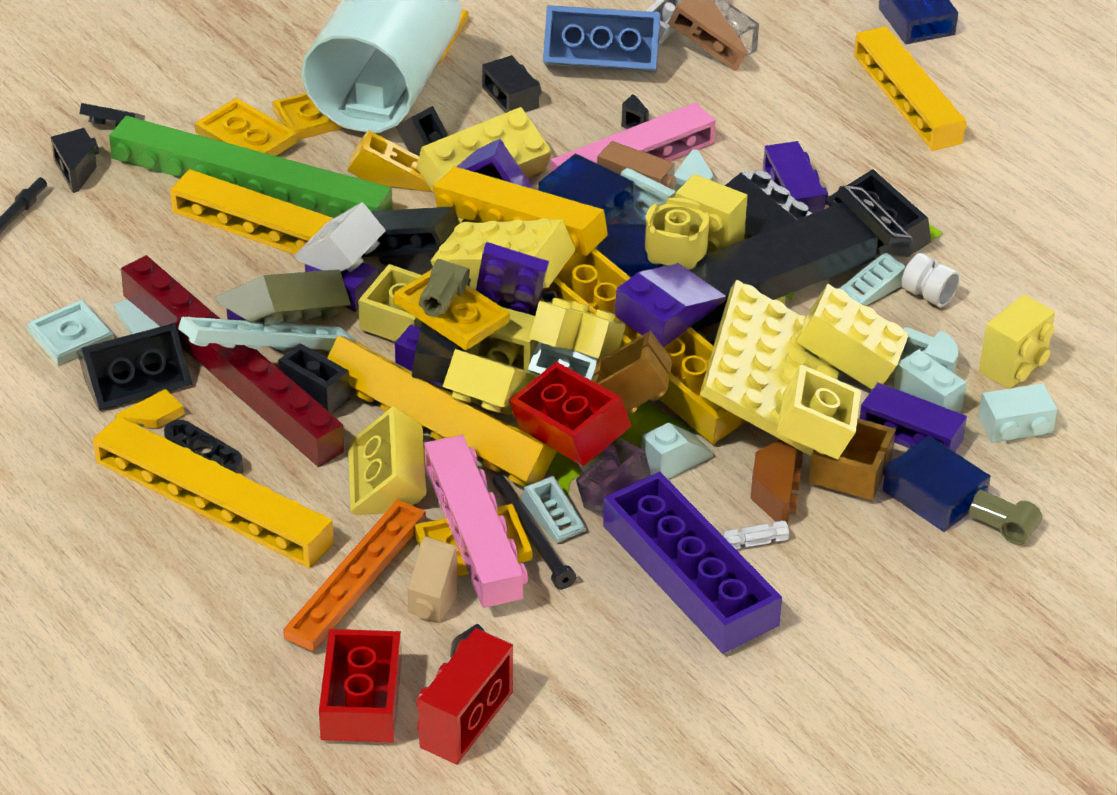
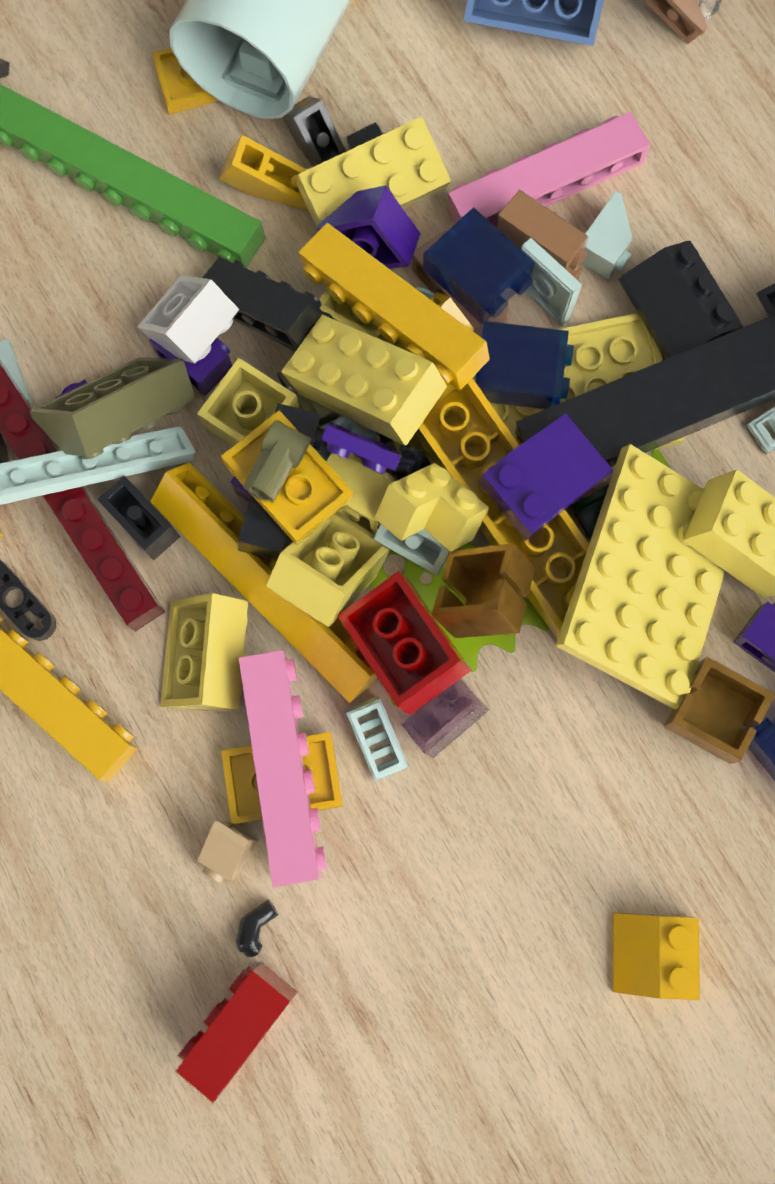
camera: 15 degrees right, 35 degrees up
(245, 212) = (102, 236): yellow brick -> none
(246, 127) = (116, 101): yellow plate -> none
(354, 576) = (150, 811): orange plate -> none
(360, 685) = (130, 992): red brick -> none
(510, 84) = (423, 53): black brick -> none
(562, 575) = (349, 766): black bar -> none
(633, 112) = (557, 117): black slope -> none
(673, 450) = (522, 666): light aqua slope -> none
(676, 233) = (576, 345): light yellow brick -> none
(692, 562) = (514, 853): dark purple brick -> none
(725, 210) = (615, 323): light yellow brick -> none
(757, 534) = (591, 802): white axle -> none
(775, 479) = (624, 731): dark orange slope -> none
(792, 170) = (727, 243): dark purple brick -> none
(819, 412) = (691, 688): light yellow brick -> none
(835, 623) = (656, 956): none -> yellow slope

